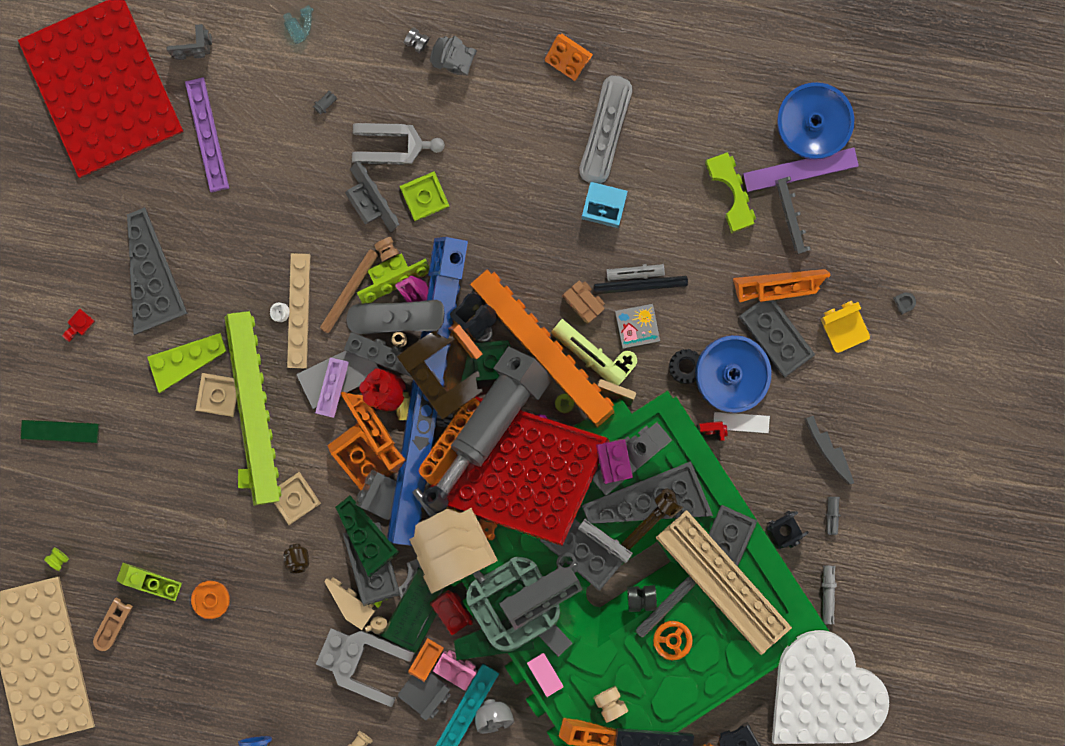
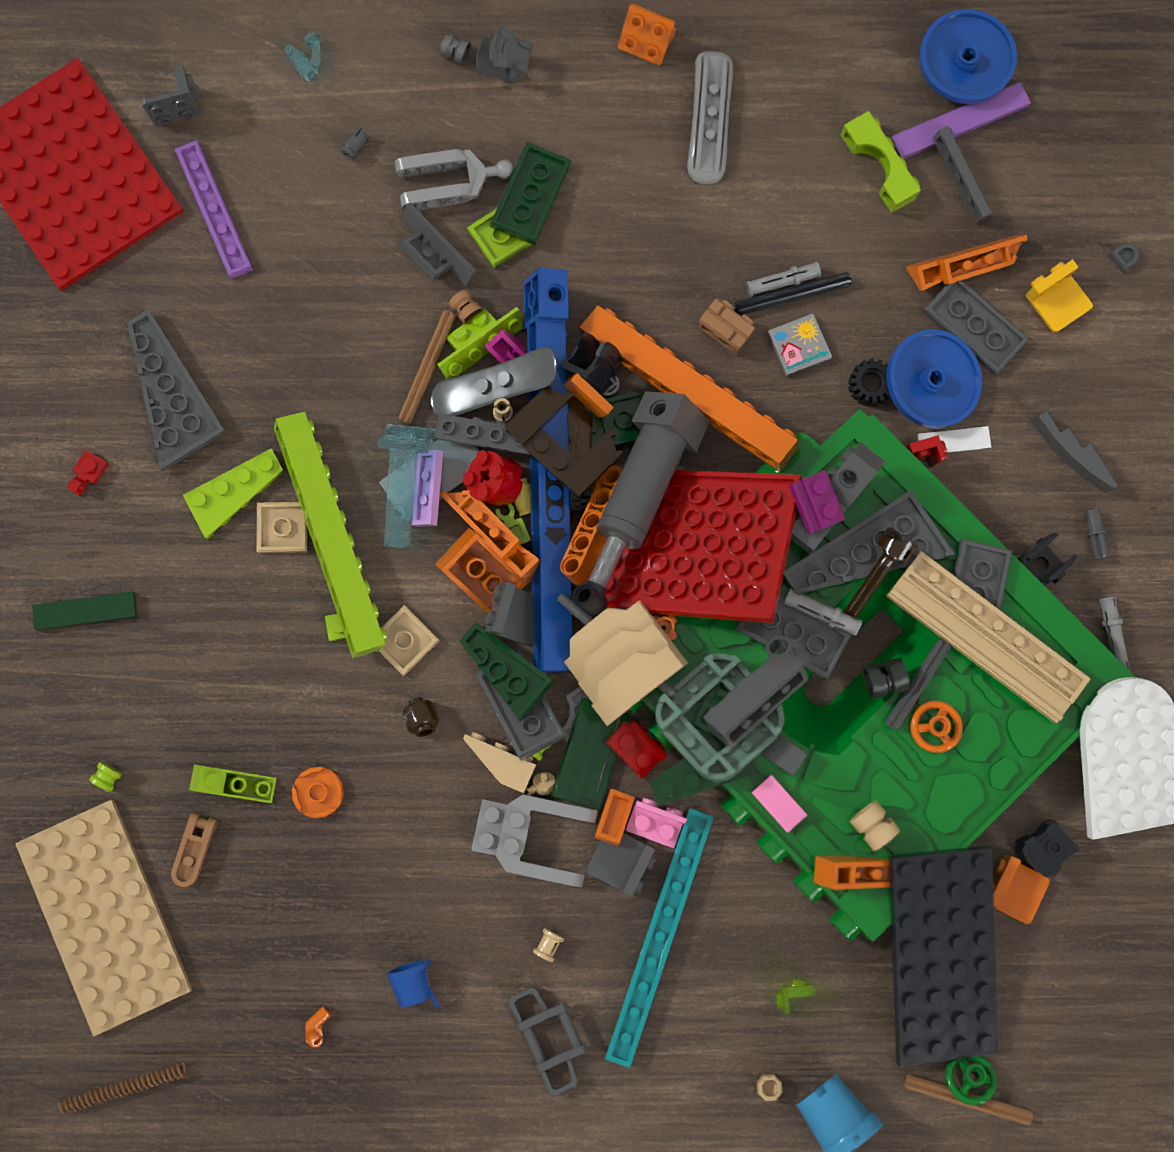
camera: 15 degrees left, 5 degrees down
(279, 312) = (343, 408): white tile -> none
(299, 311) = (367, 402): tan plate -> none
(320, 350) = (403, 446): none -> clear light blue bracket
(393, 428) = (516, 526): none -> lime plate
(453, 168) = (530, 193): none -> dark green tile
(493, 716) = (718, 874): light grey cylinder -> none
(564, 403) = (725, 461): lime wheel -> none
(604, 204) = (728, 205): medium azure slope -> none
(610, 372) = (754, 390): yellowish green piece -> none
(614, 391) = (796, 423): tan tile -> none

